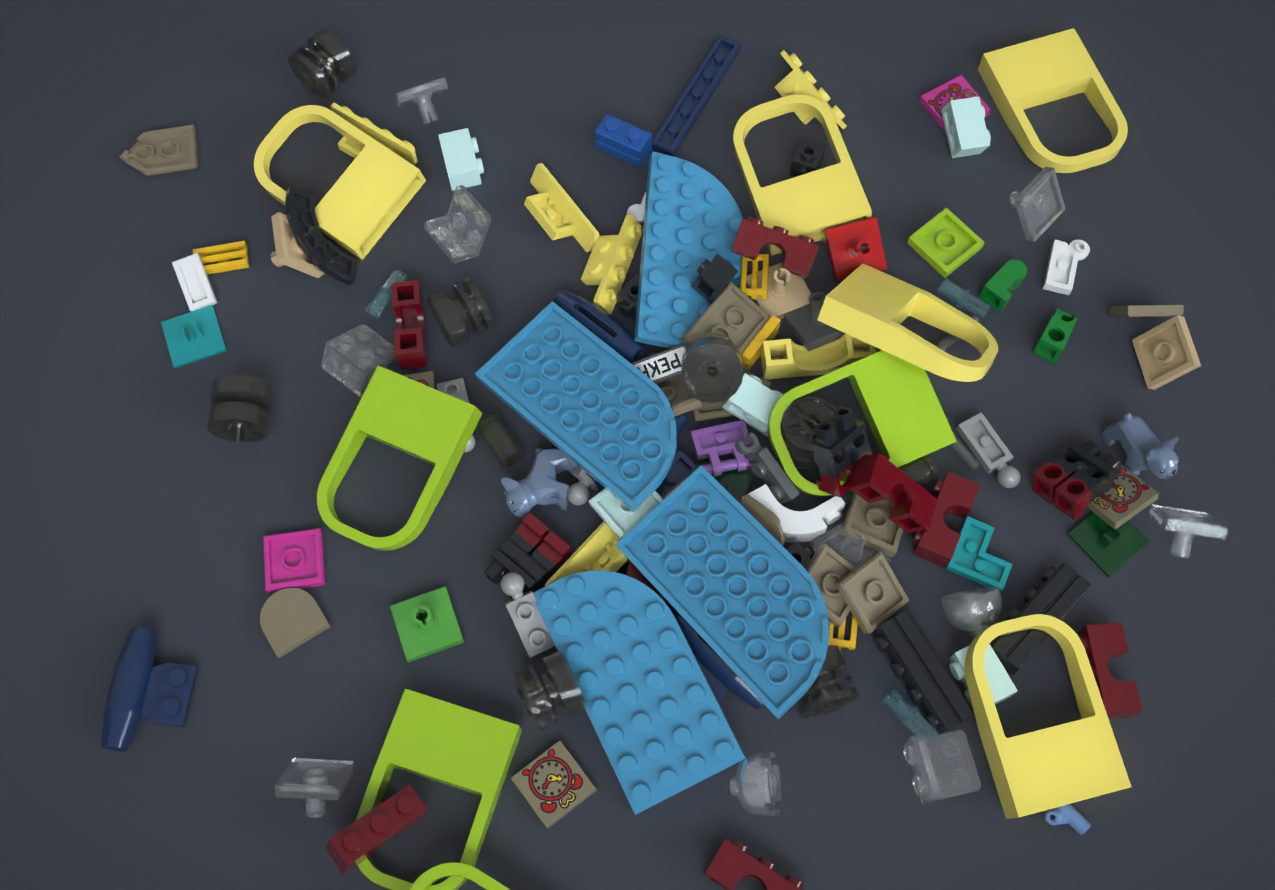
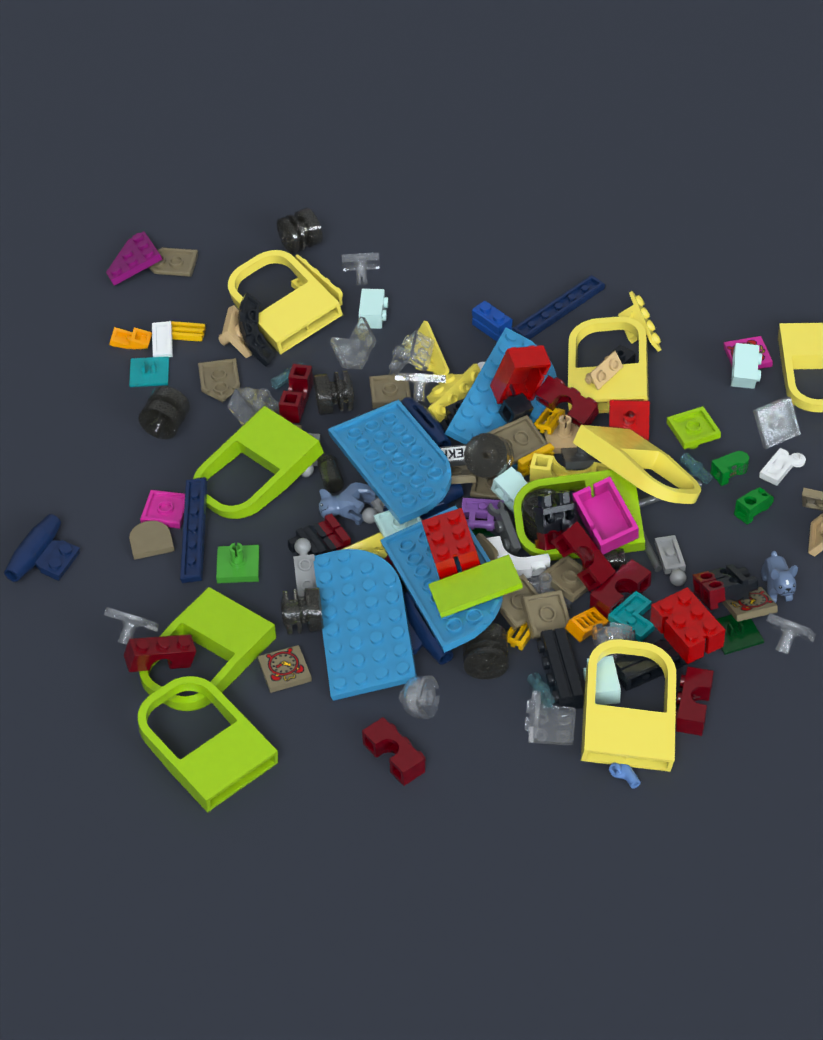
camera: 20 degrees right, 20 degrees down
(109, 161) = (134, 257): none -> magenta plate
(151, 291) = (130, 340): none -> light orange slope
(294, 323) = (219, 378): none -> dark tan tile
(348, 590) = (193, 530): none -> dark blue tile
(528, 280) = (387, 390): none -> dark tan tile
(540, 218) = (414, 350): none -> clear bracket
(567, 259) = (420, 382): none -> clear tile
(710, 228) = (521, 369): none -> red piece
(727, 542) = (449, 538): none -> red piece
(786, 604) = (475, 586): none -> lime tile
(808, 178) = (604, 371): none -> tan hinge
(905, 426) = (606, 516): none -> dark pink piece
(914, 601) = (576, 624): none -> light orange slope
(1077, 567) = (687, 625): none -> red piece

